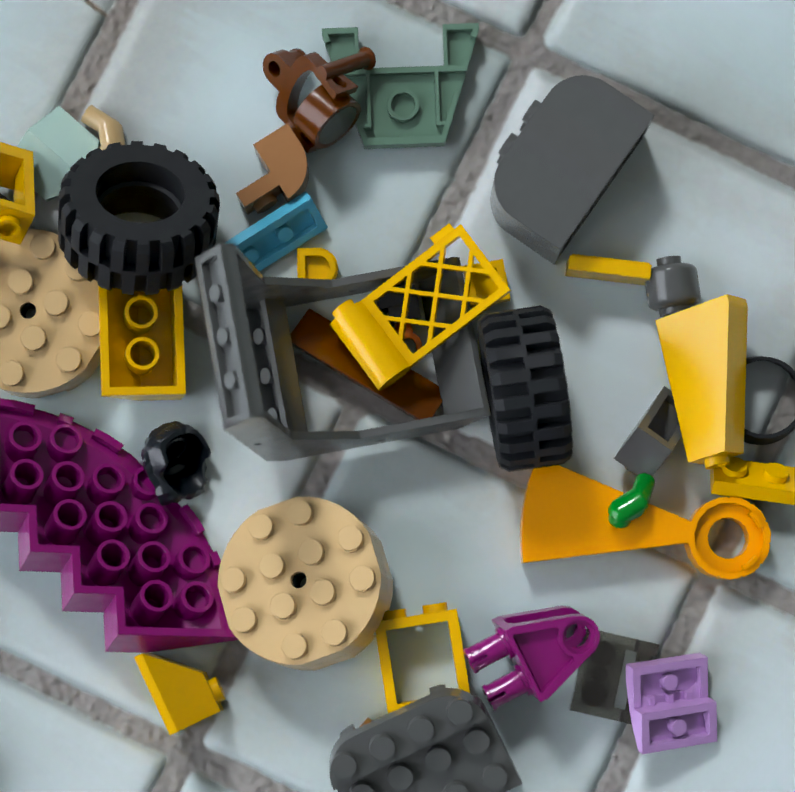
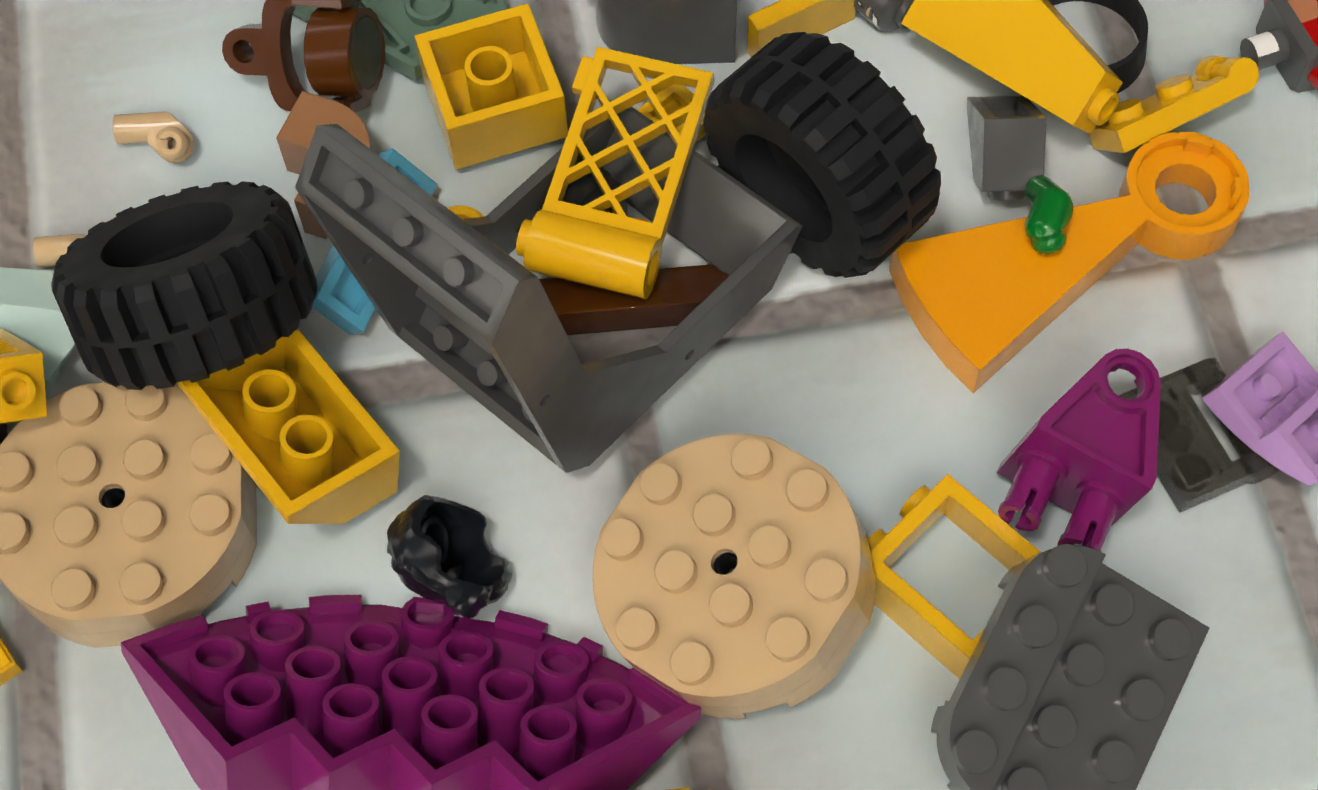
camera: 35 degrees left, 20 degrees down
(201, 81) = (159, 130): none -> tan arm
(395, 193) = (492, 86): none -> yellow brick

